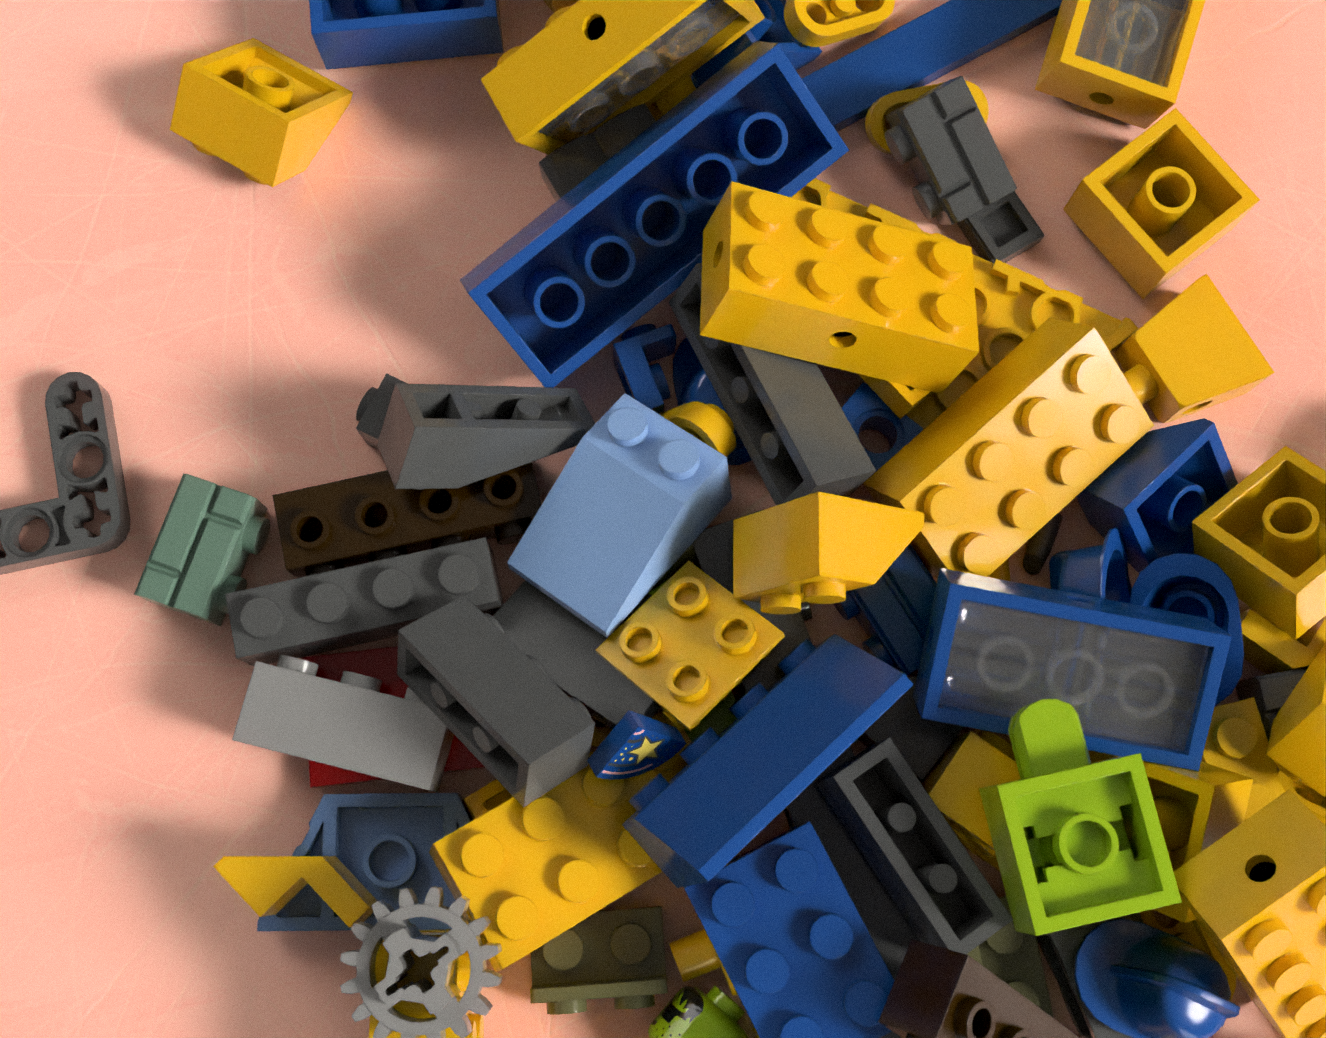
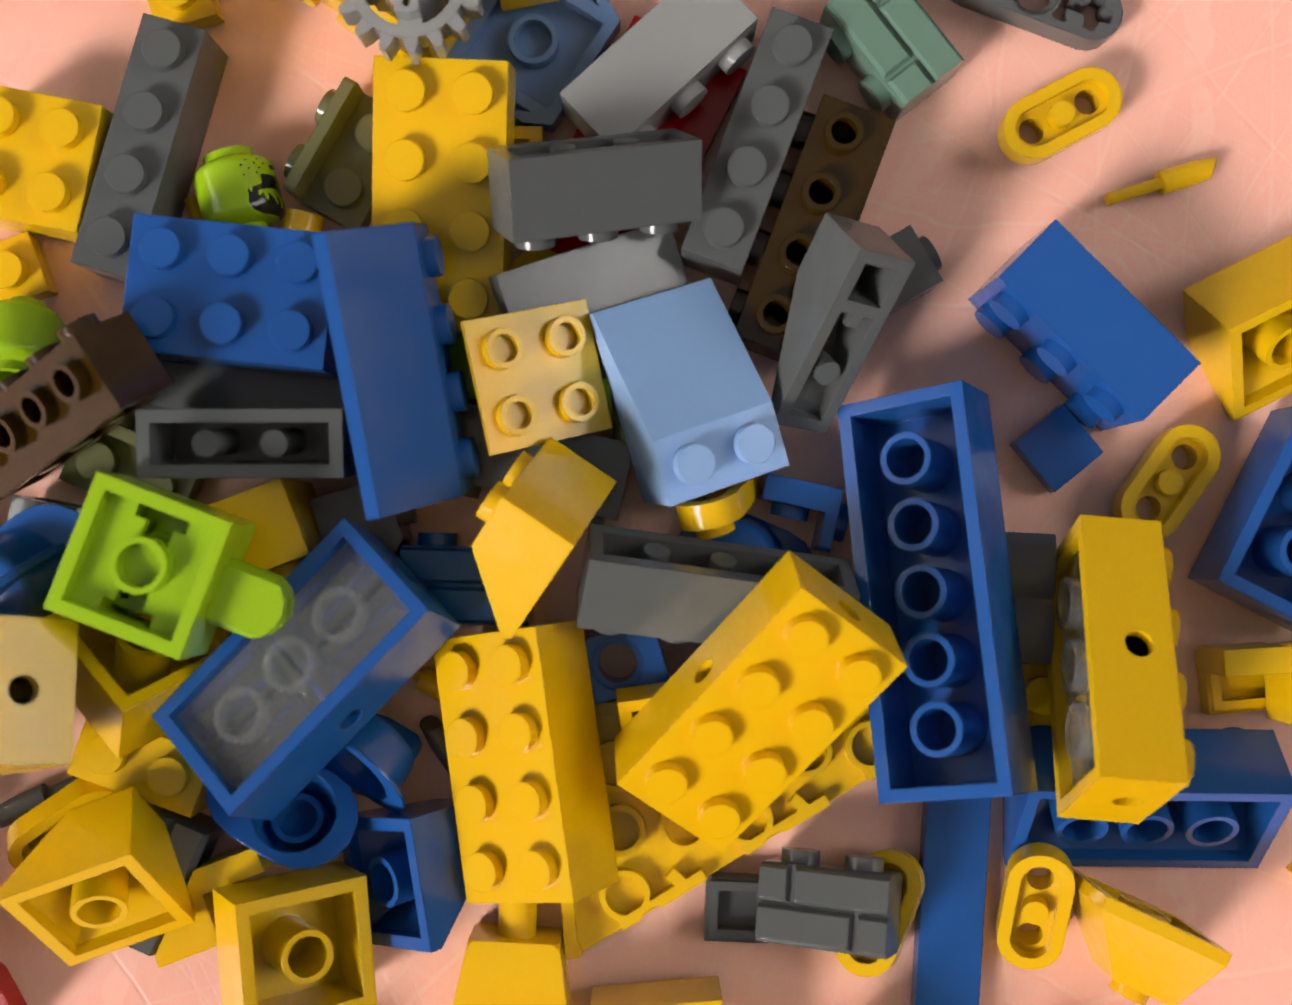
camera: 125 degrees right, 10 degrees up
(183, 258) = (1167, 180): none -> yellow piece
(184, 377) = (1055, 117): none -> yellow plate
(359, 240) = (1082, 331): none -> blue brick
(440, 107) = (1163, 484): none -> yellow plate
(464, 210) = (1056, 448): none -> blue tile
(635, 747) = (478, 272): blue tile -> none

